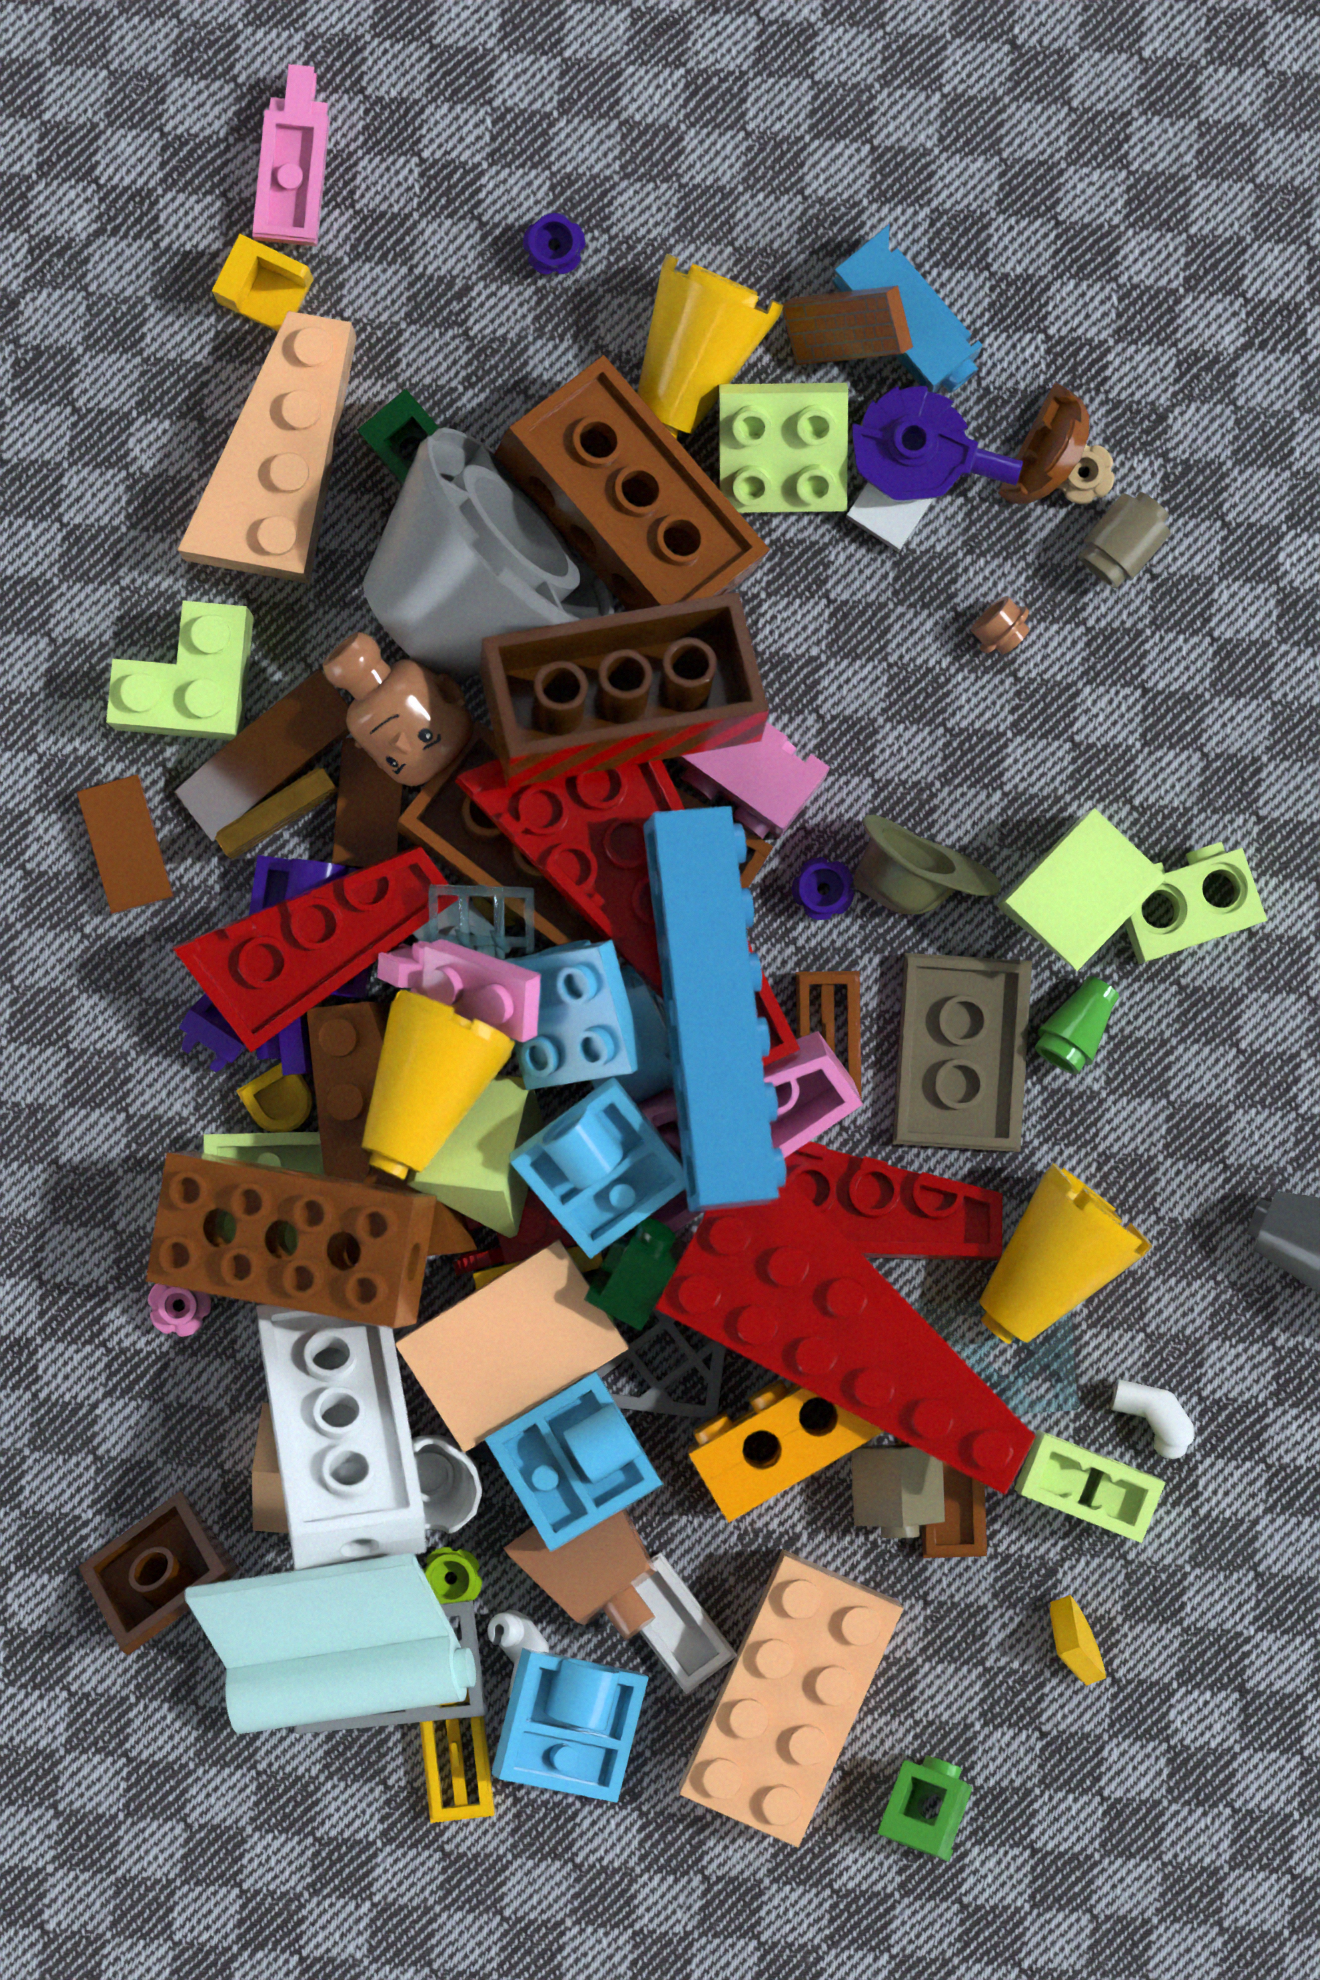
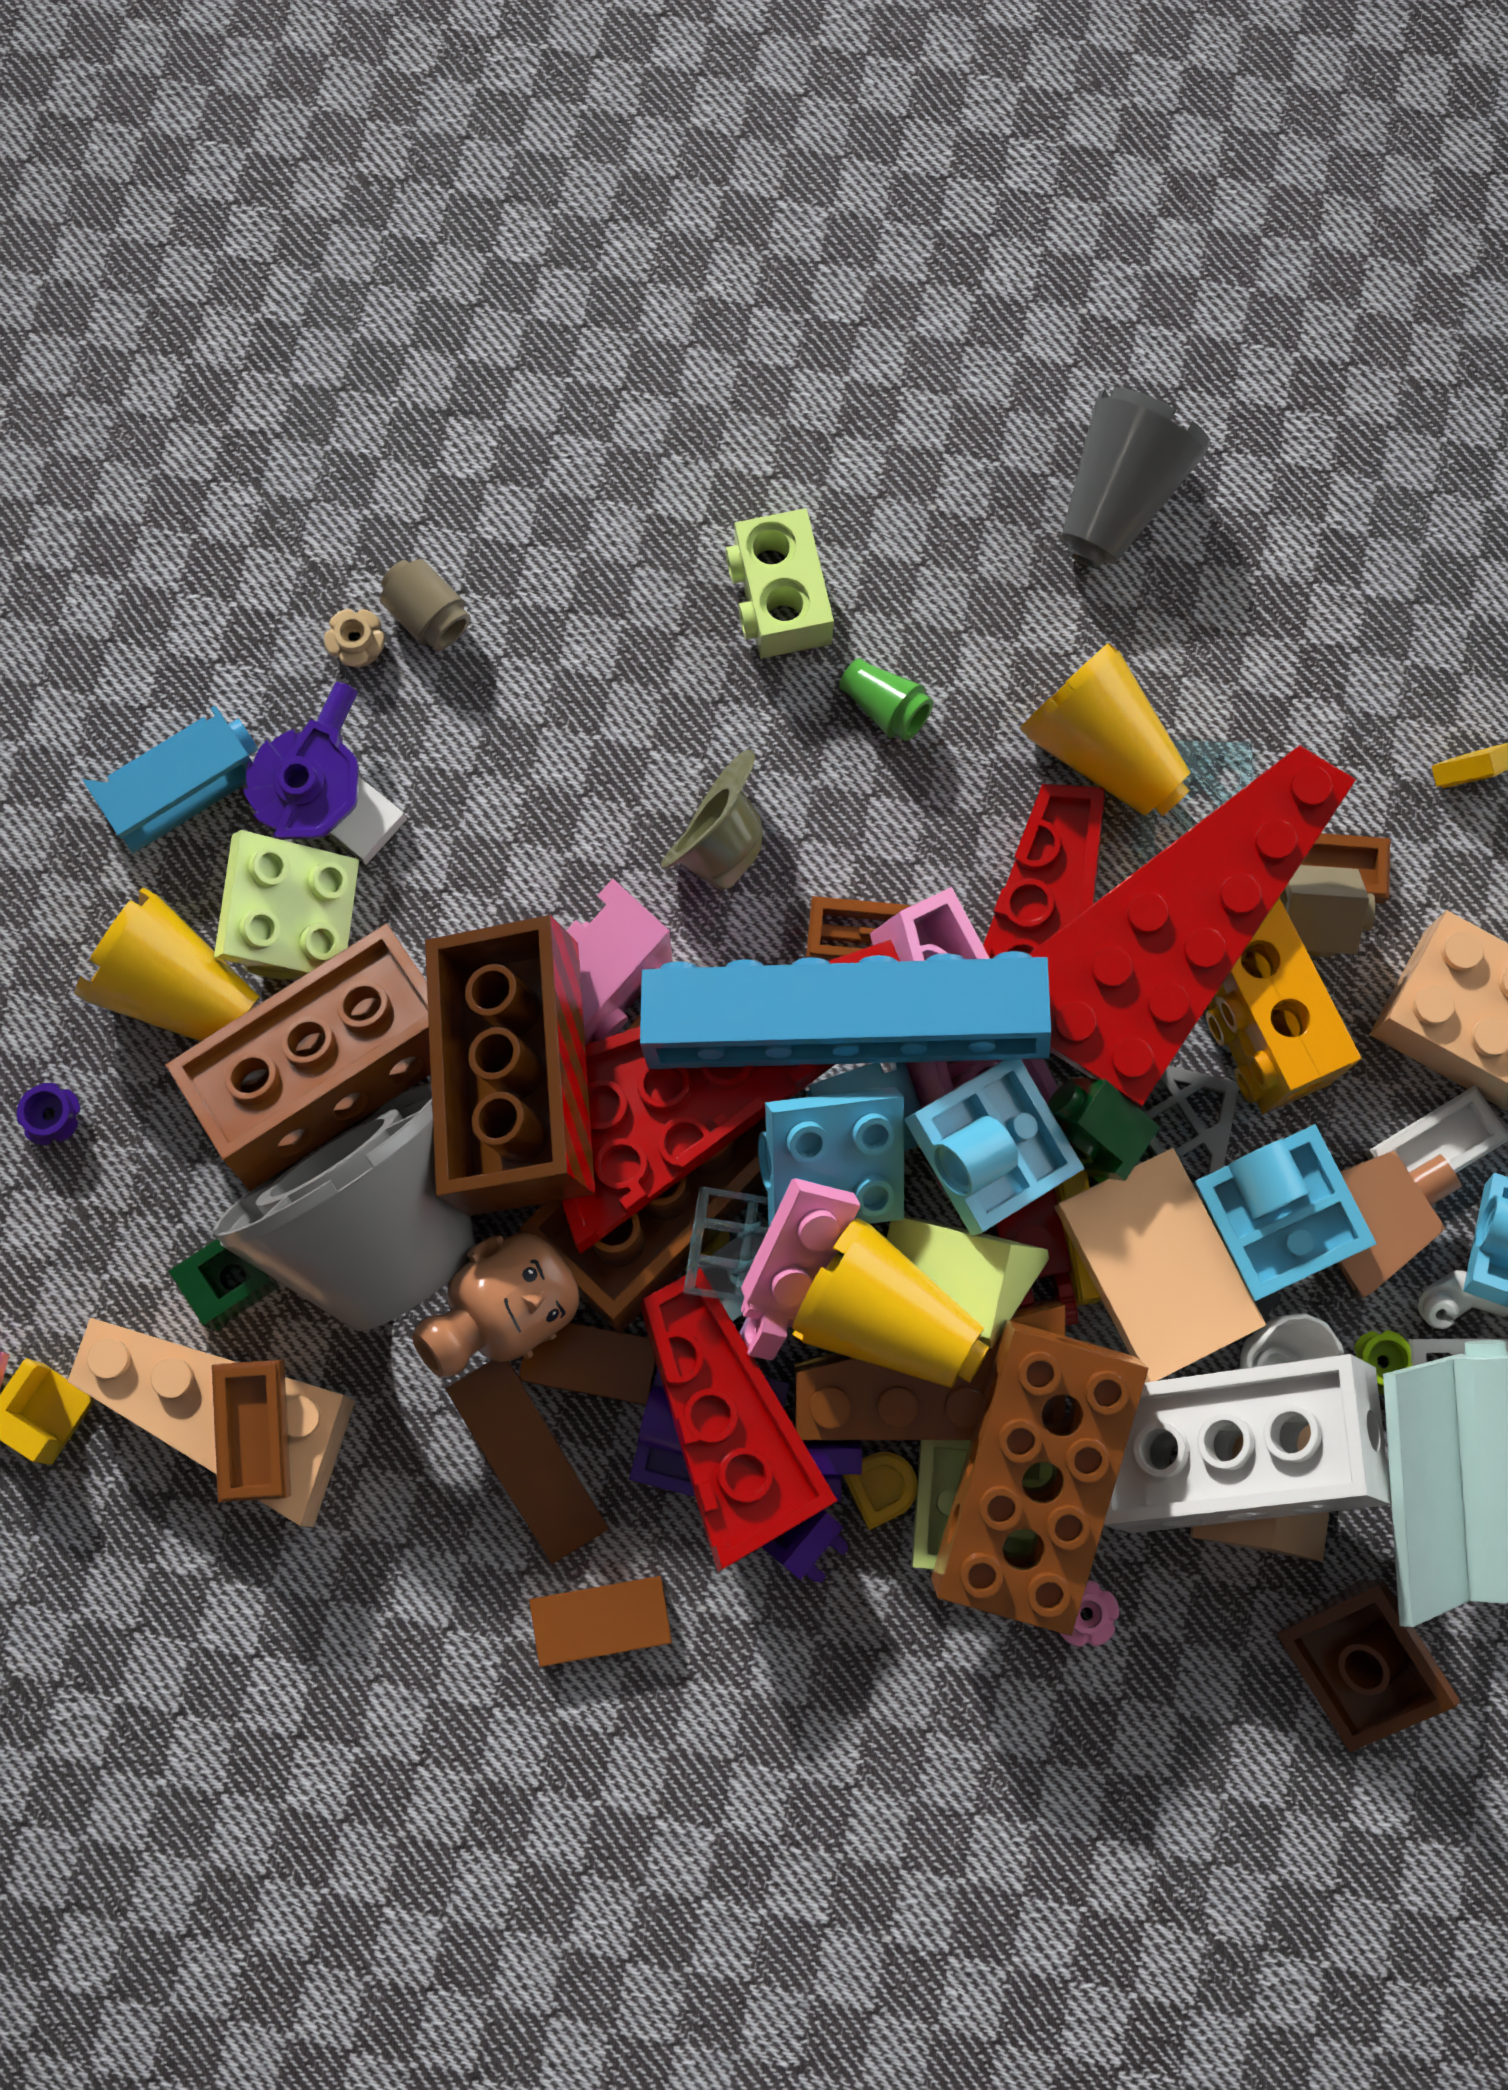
camera: 85 degrees left, 10 degrees down
(198, 694) = (456, 1531): yellowish green brick -> none
(258, 492) = (251, 1431): none -> dark orange tile
(276, 813) = (587, 1455): pearl gold tile -> none
(820, 871) = (727, 906): dark purple plate -> none
(847, 325) = (175, 830): dark orange tile -> none
(962, 1052) = (900, 811): dark tan tile -> none
(1001, 626) = (492, 727): nougat plate -> none
(1050, 447) = (323, 657): dark orange tile -> none
(1082, 889) = (755, 672): yellowish green slope -> none
(1089, 1486) = (1342, 711): yellowish green brick -> none
(1163, 1412) = (1256, 666): white arm -> none

